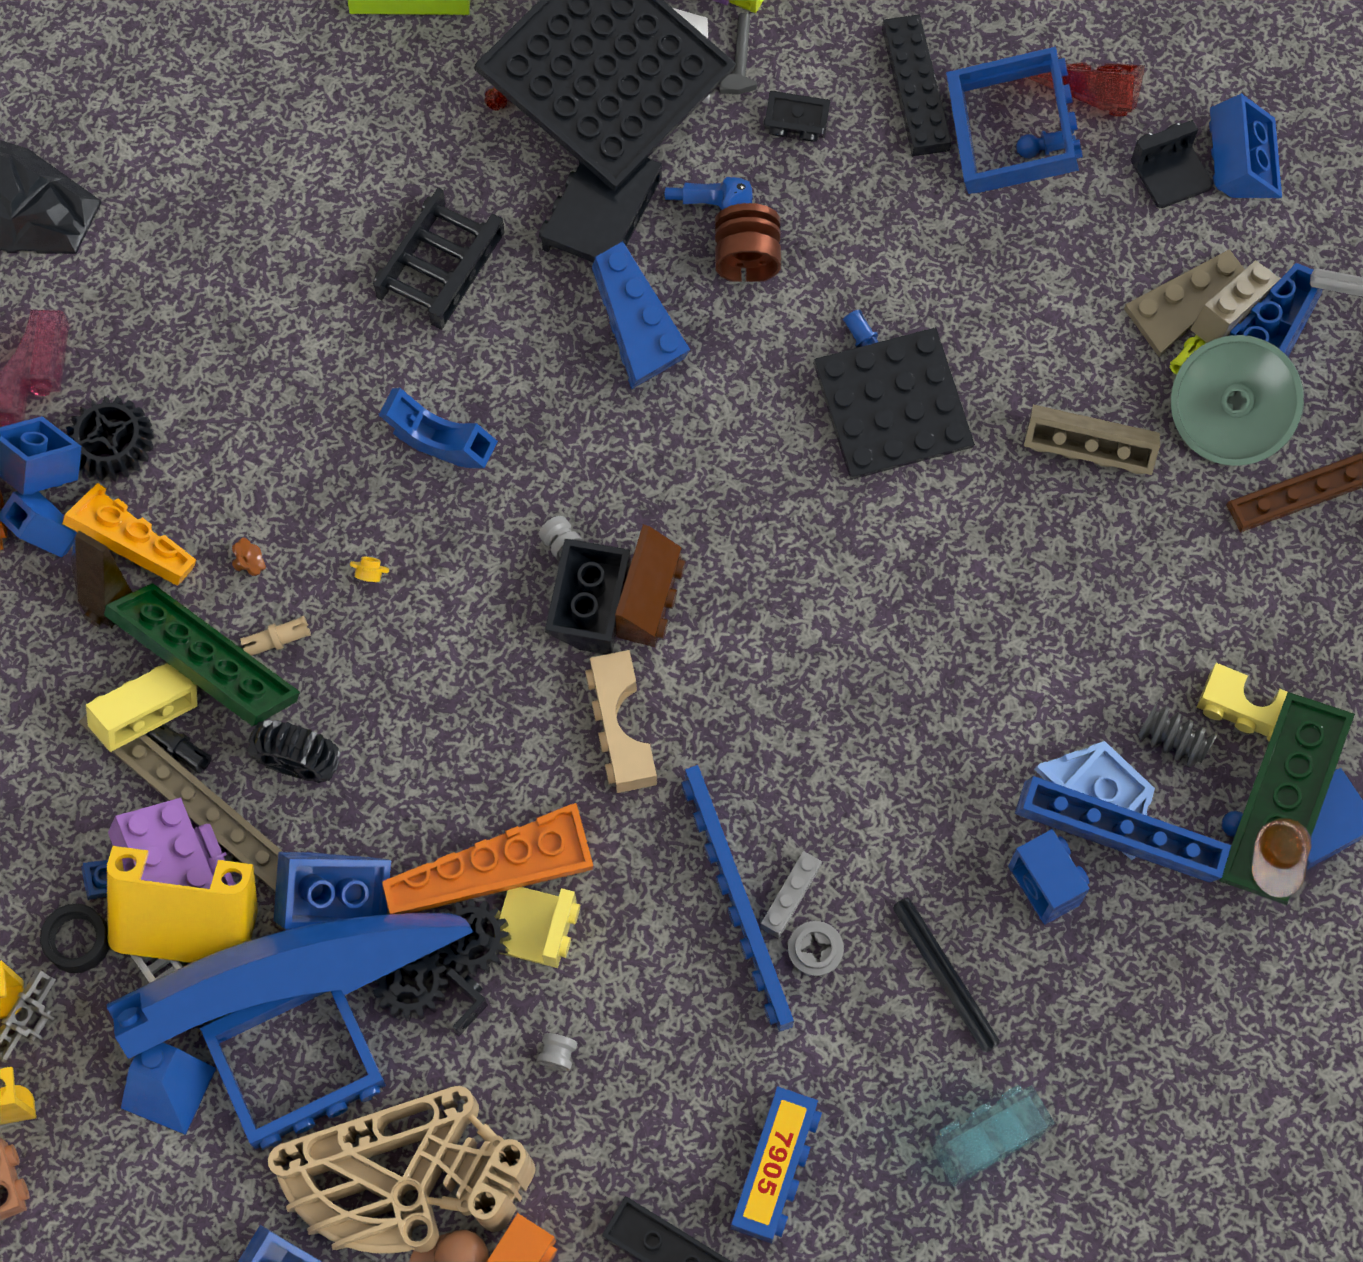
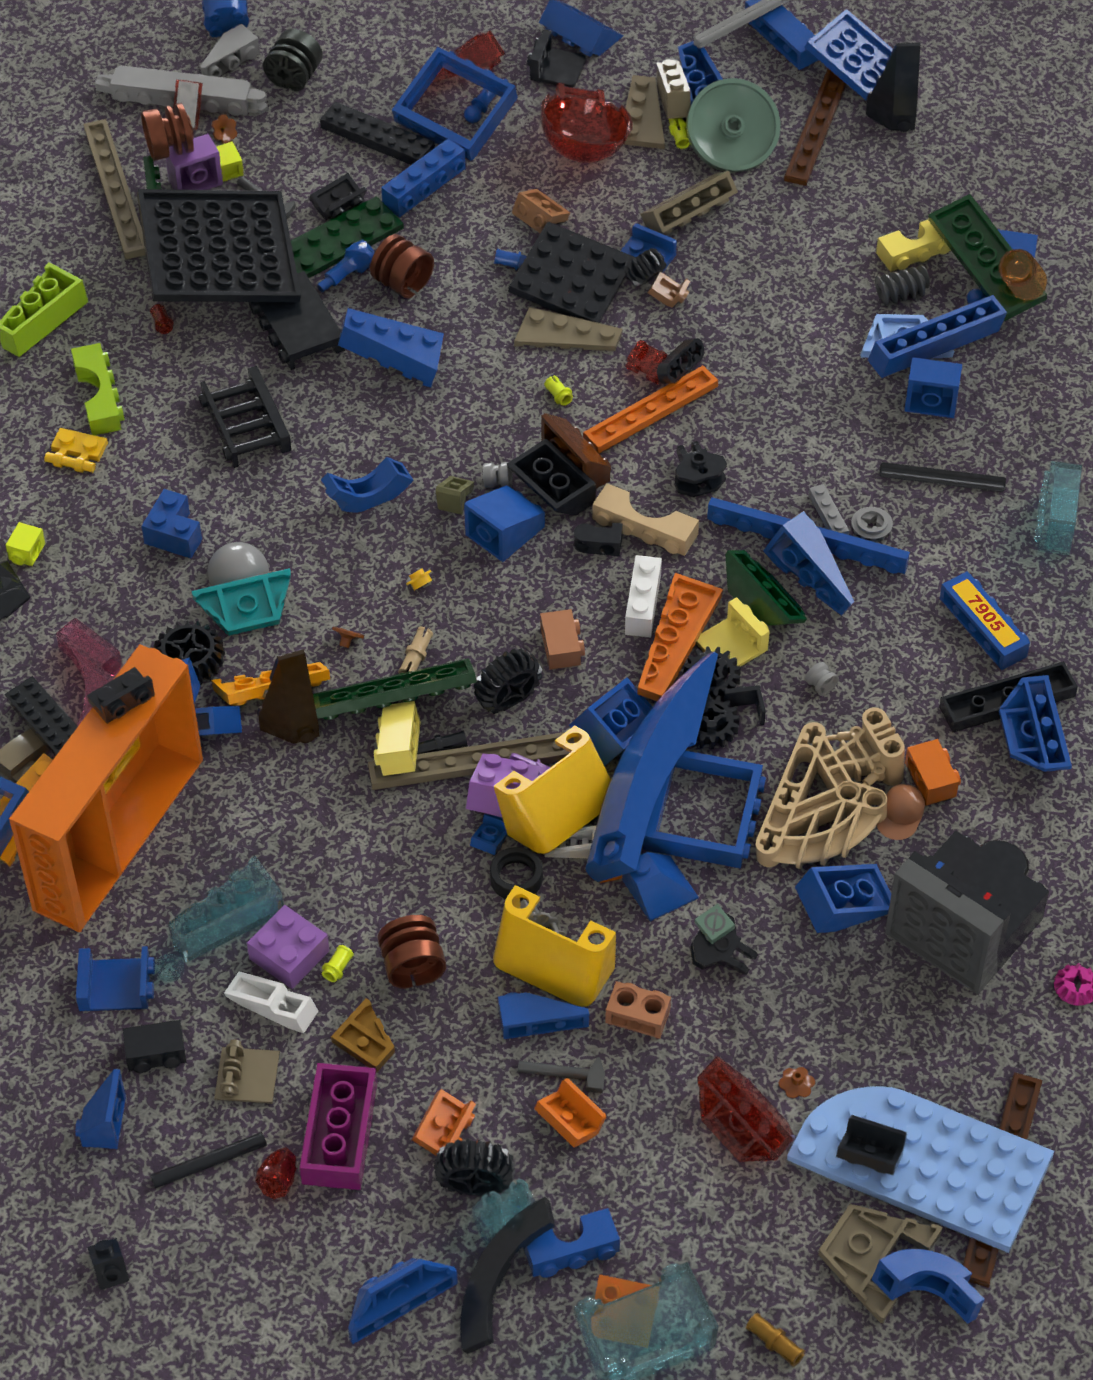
camera: 50 degrees left, 15 degrees down
(120, 1187) = (714, 923): none -> sand green tile
(124, 200) = (25, 544): none -> neon yellow brick
(125, 1200) = (708, 955): none -> black hinge
(211, 440) = (246, 602): none -> teal wing
(245, 296) = (169, 525): none -> blue brick
(252, 400) = (236, 562): none -> light grey piece
(288, 148) = (77, 444): none -> yellow plate
(341, 134) = (91, 368): none -> lime arch
(399, 758) = (561, 639): none -> nougat brick
(503, 589) = (502, 521): none -> blue slope
(505, 514) = (452, 494): none -> olive slope
(517, 795) = (643, 596): none -> white brick
(559, 698) = (598, 539): none -> black leg
(619, 912) = (760, 590): none -> dark green wedge
(704, 906) = (805, 553): none -> blue wedge
(724, 515) = (561, 394): none -> neon yellow pin
(733, 721) = (698, 468): none -> black hinge
(765, 160) = (328, 242): none -> dark green plate
(779, 615) = (650, 409): none -> orange plate
(809, 448) = (563, 331): none -> dark tan wing
(839, 567) = (645, 359): none -> clear red piece
(850, 588) = (688, 361): none -> black beam
(892, 170) = (423, 177): none -> blue brick
(955, 306) = (537, 209): none -> medium nougat bracket
(956, 509) = (668, 290): none -> medium nougat bracket
(959, 465) = (645, 267): none -> black gear
(998, 450) = (645, 238): none -> blue bracket
(1096, 257) = (584, 125): none -> clear red windscreen

